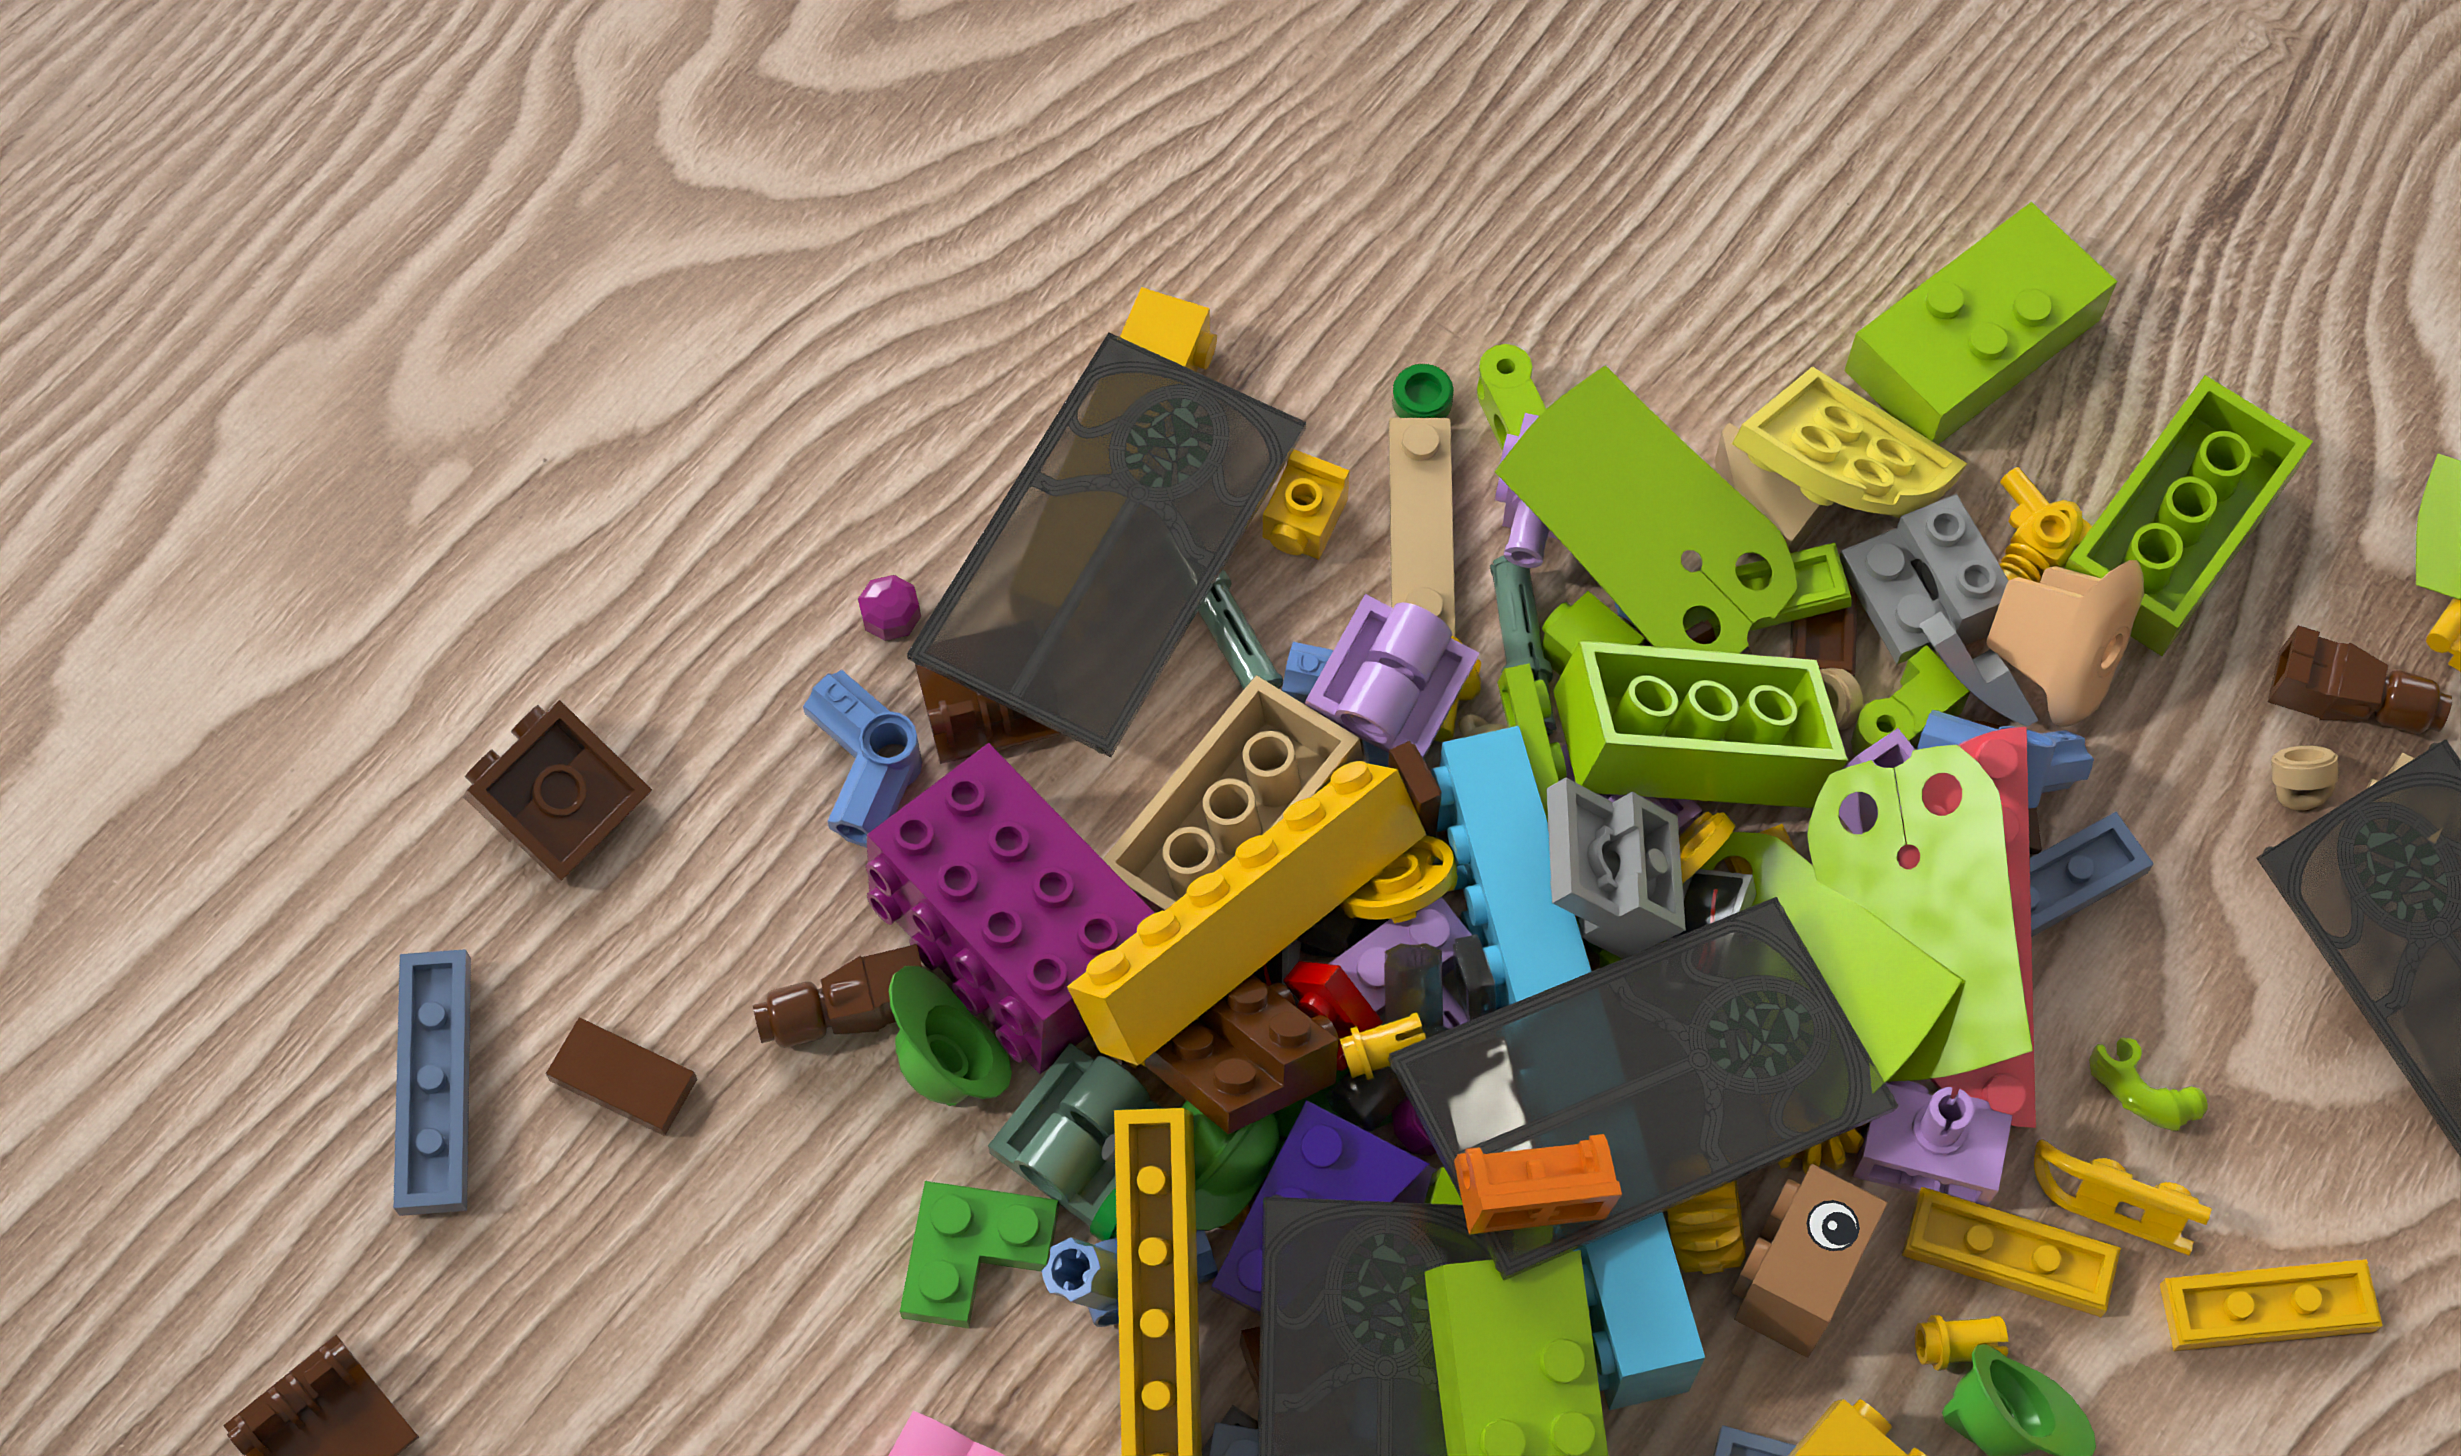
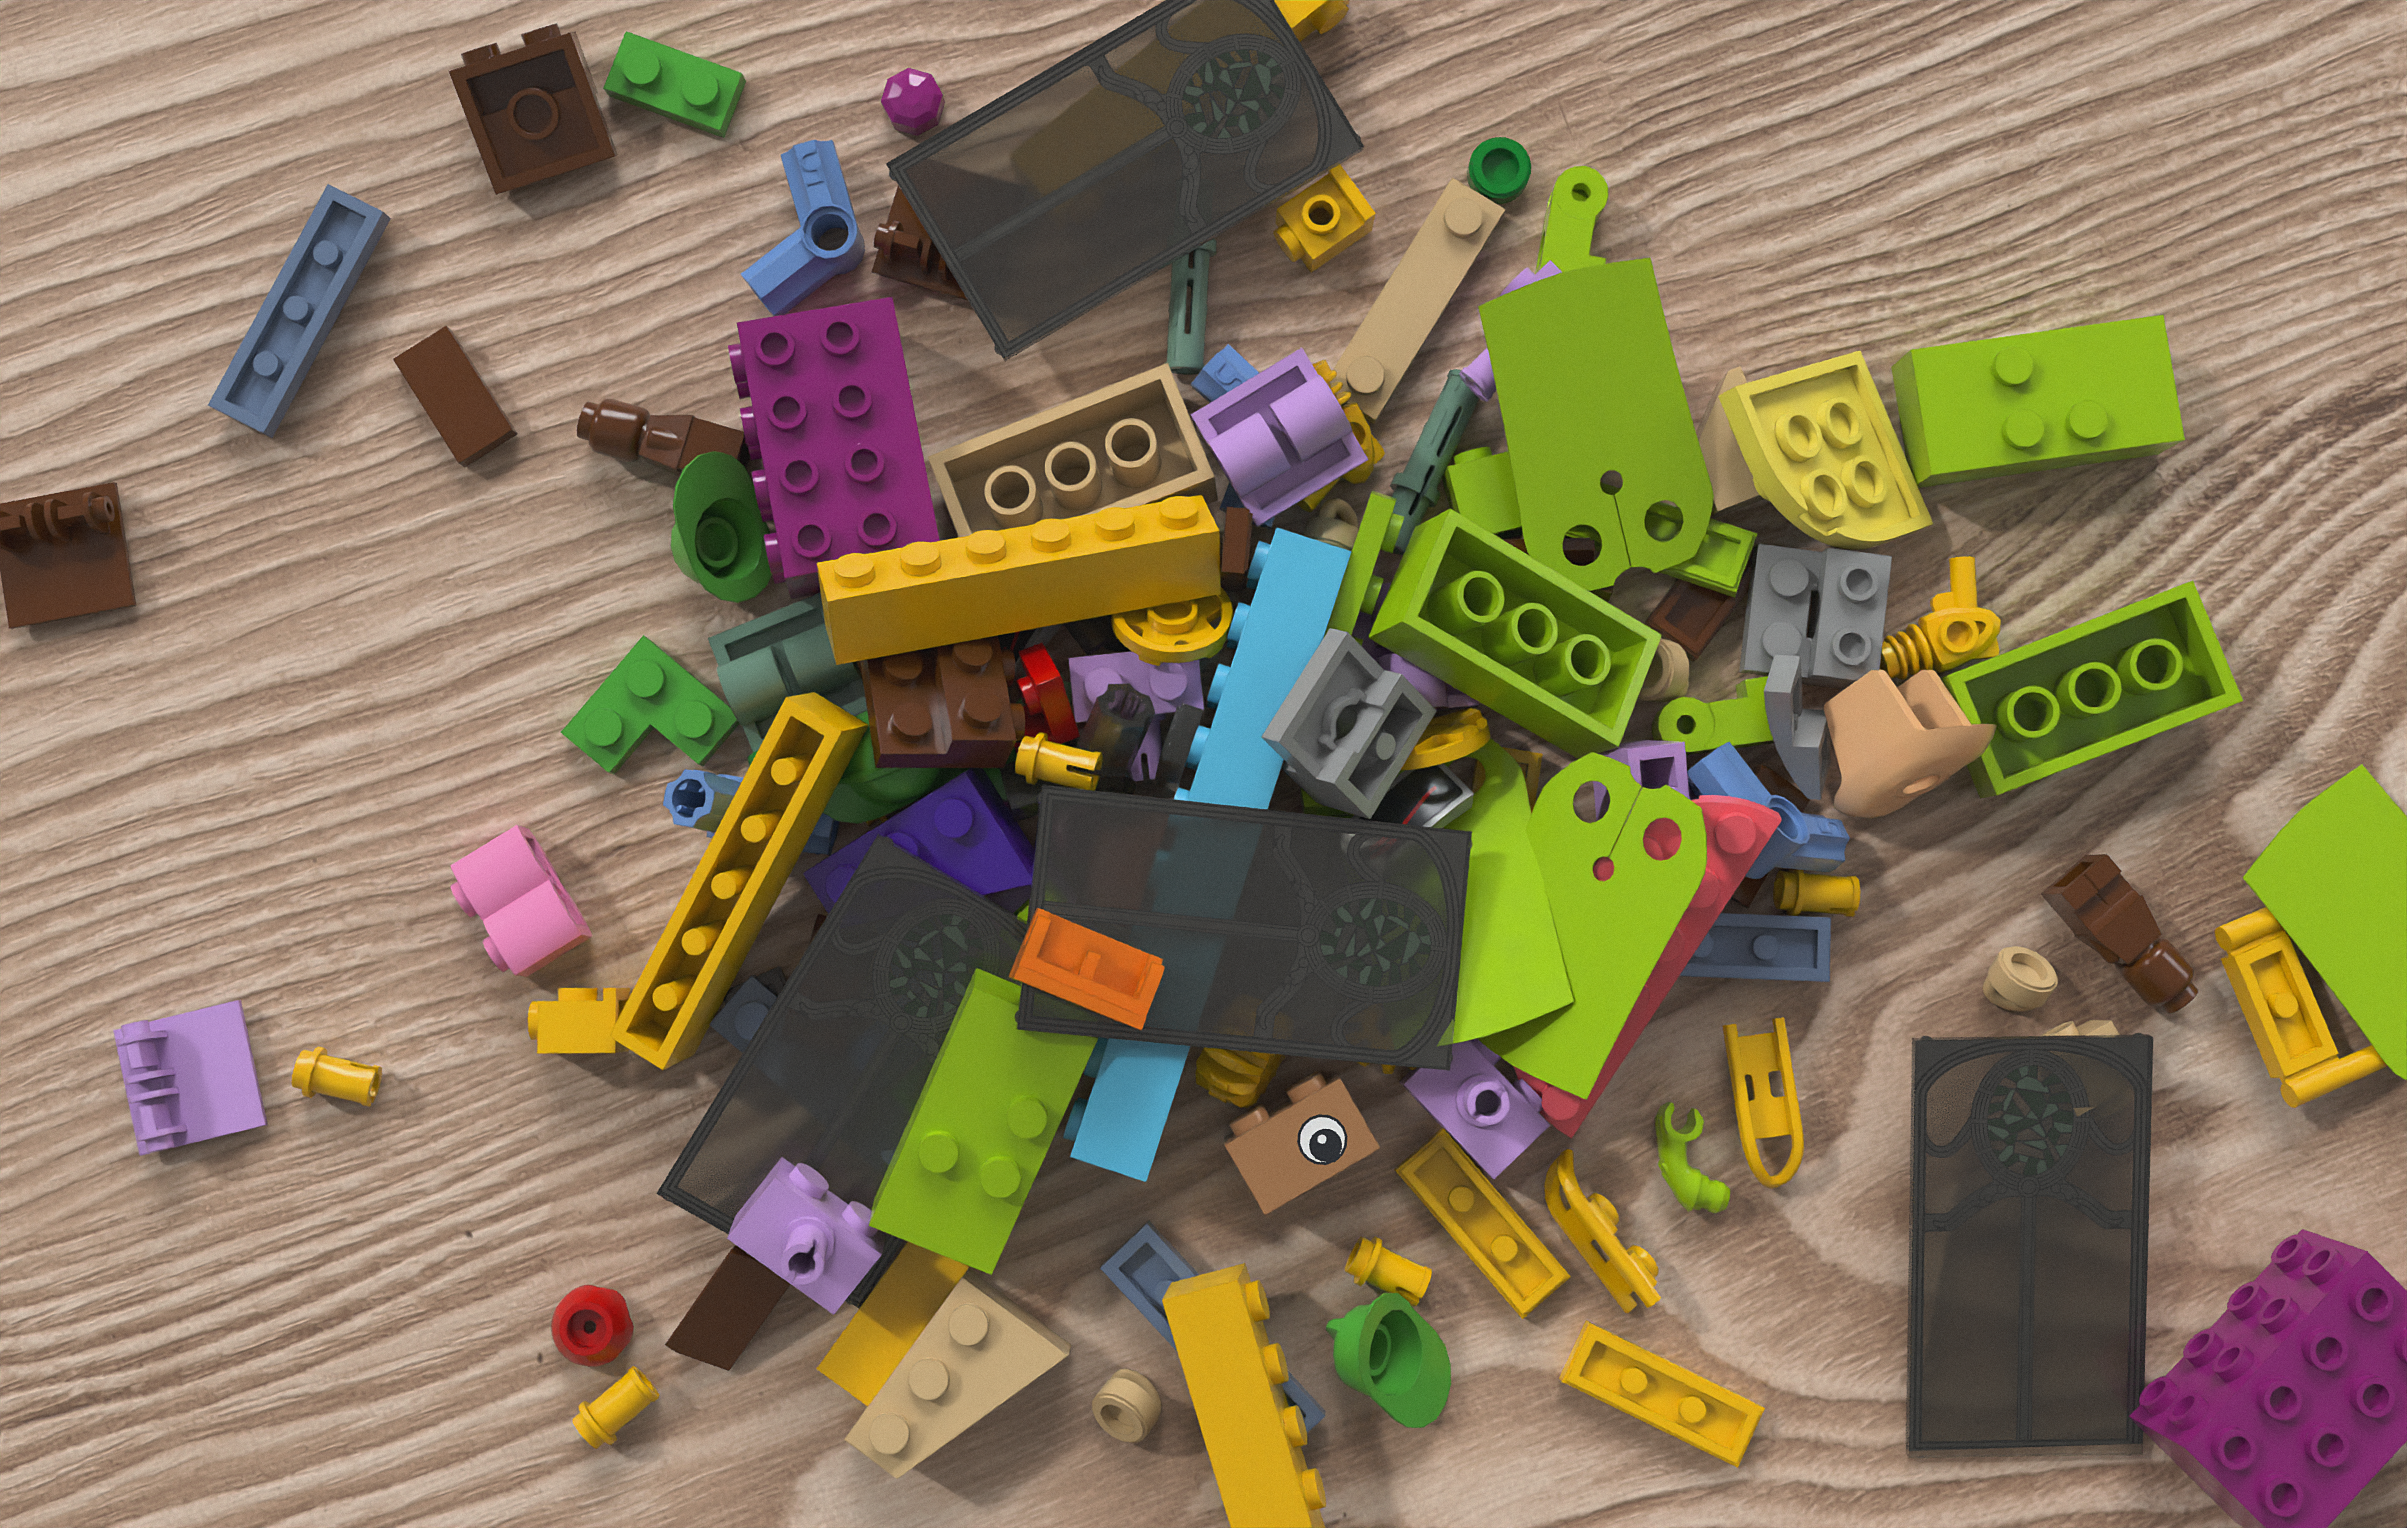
camera: 30 degrees right, 20 degrees up
(667, 707) = (674, 84): none -> bright green plate
(2076, 808) = (1816, 893): none -> yellow pin
(2176, 1010) = (1765, 1114): none -> yellow piece

